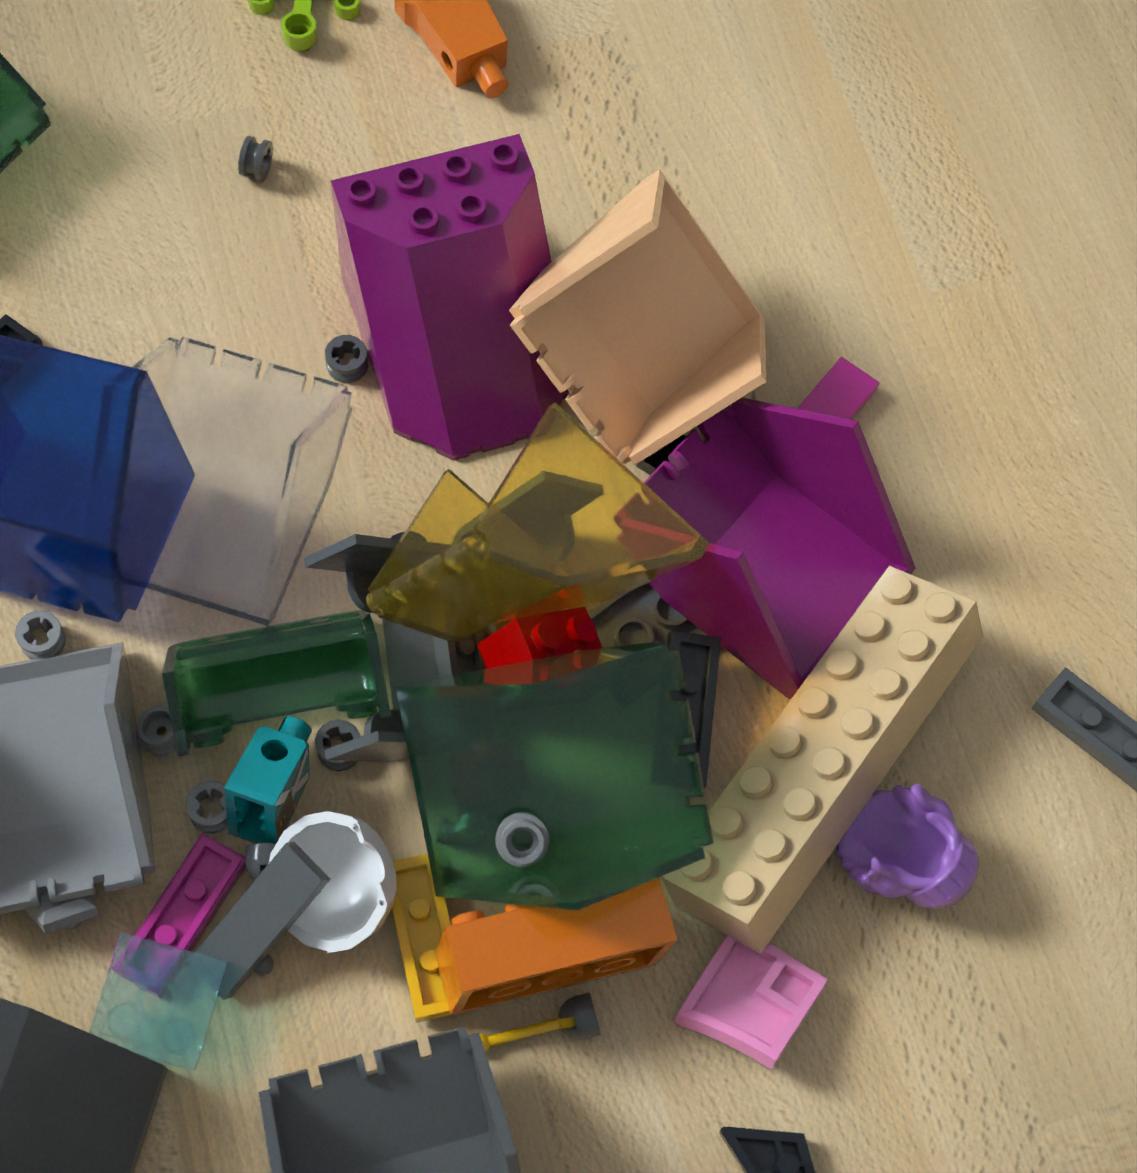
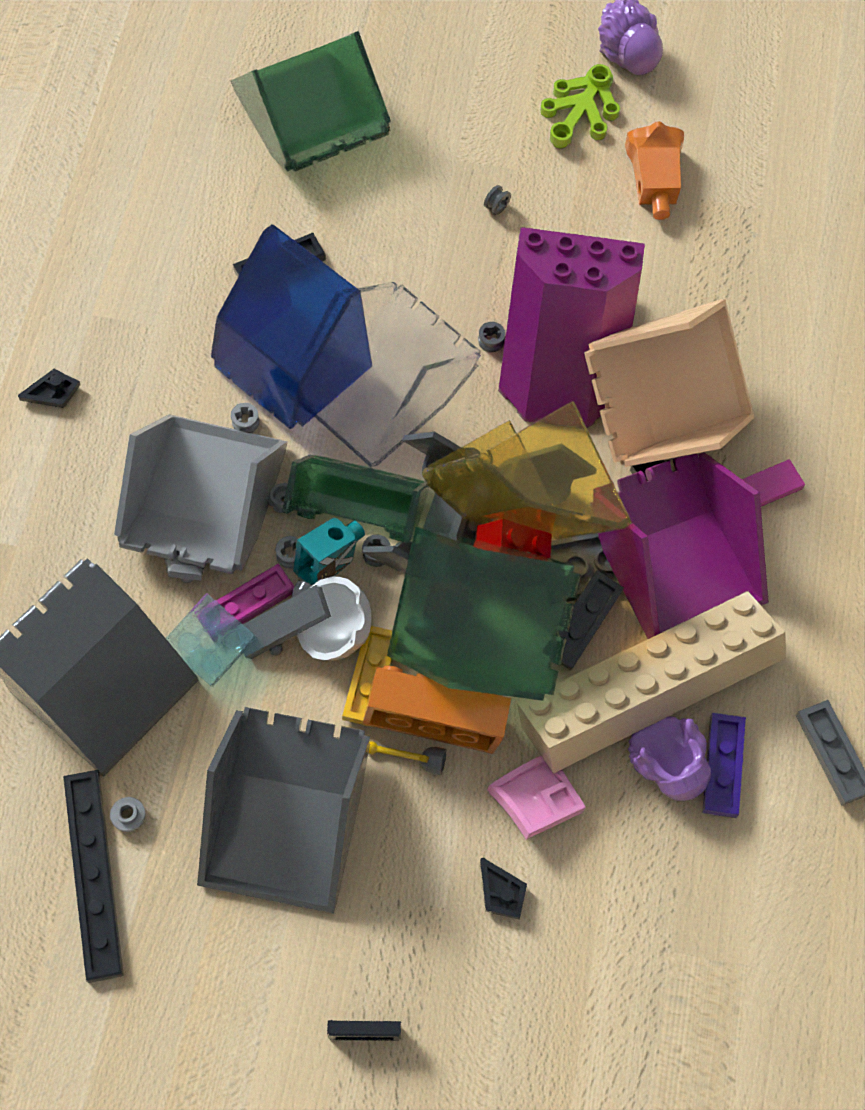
camera: 30 degrees right, 0 degrees up
(526, 855) = (438, 649): light grey plate -> none
(965, 787) = (726, 763): none -> dark purple plate

